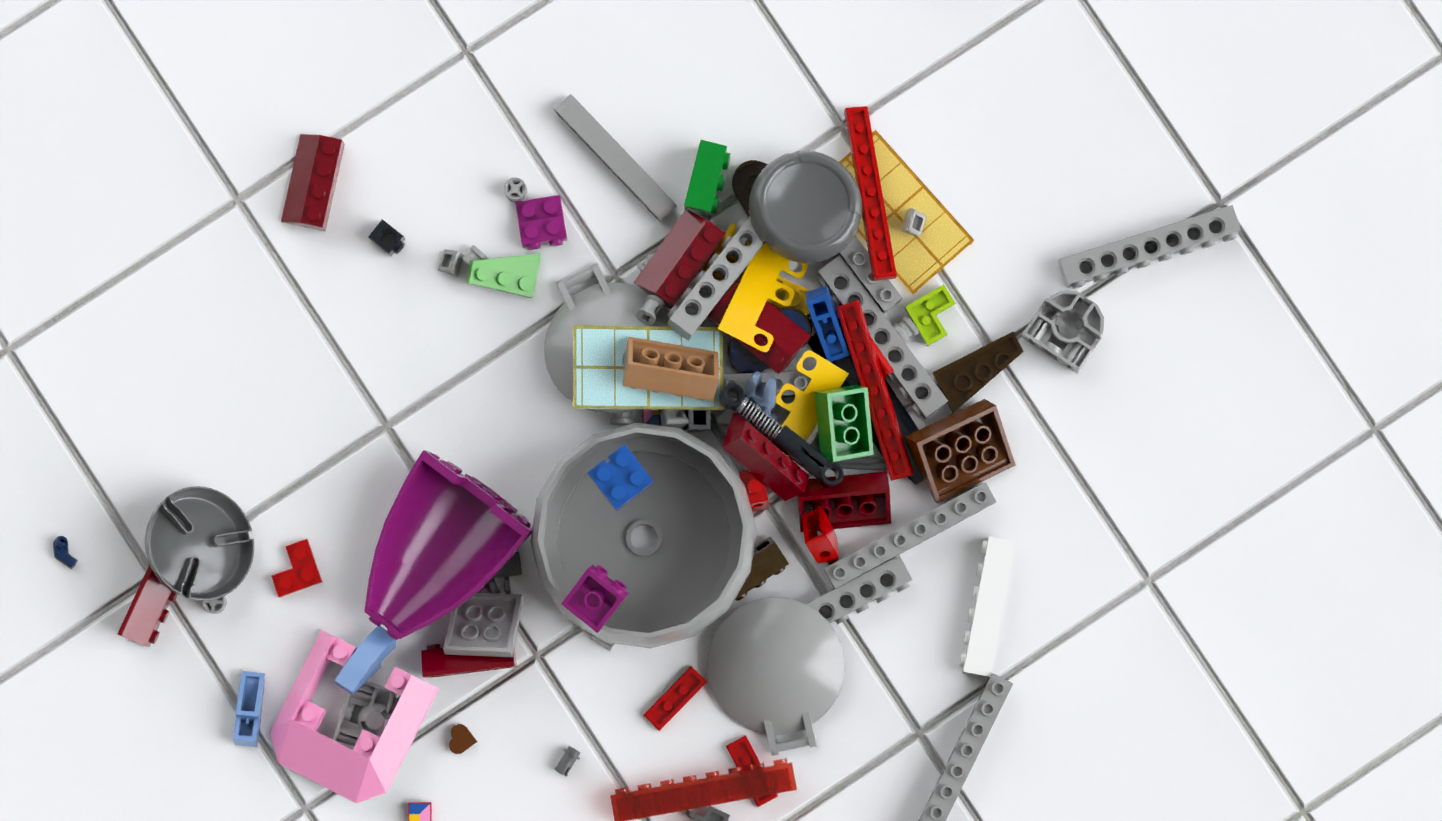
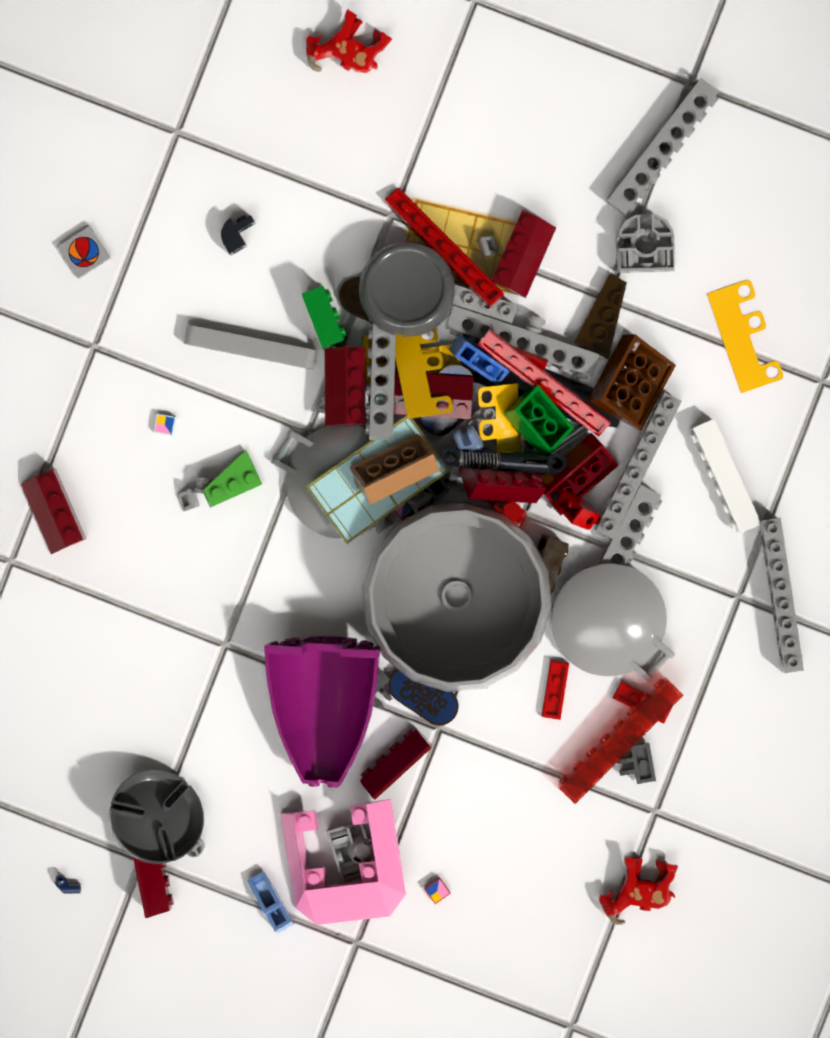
camera: 35 degrees left, 5 degrees up
(304, 570) = (240, 783): red plate -> none
(365, 660) = (326, 815): medium blue slope -> none
(383, 229) = (125, 514): black brick -> none
(461, 739) = (429, 820): reddish brown tile -> none
(479, 174) = (164, 424): none -> tile
(484, 625) = (391, 734): light grey plate -> none
(513, 186) = (194, 413): light grey wheel -> none
(541, 222) = (230, 427): magenta plate -> none
(542, 619) = (428, 702): none -> tile
(567, 761) = (512, 784): dark grey pin -> none
(595, 597) = (457, 666): magenta plate -> none
(621, 477) = (416, 572): blue piece -> none
(652, 306) = (350, 437): light grey bush -> none
(673, 38) = (231, 233): none -> black brick
(924, 313) = (539, 302): lime plate -> none
(942, 254) = (523, 254): none -> dark red slope
(1094, 477) = (736, 336): none -> yellow piece

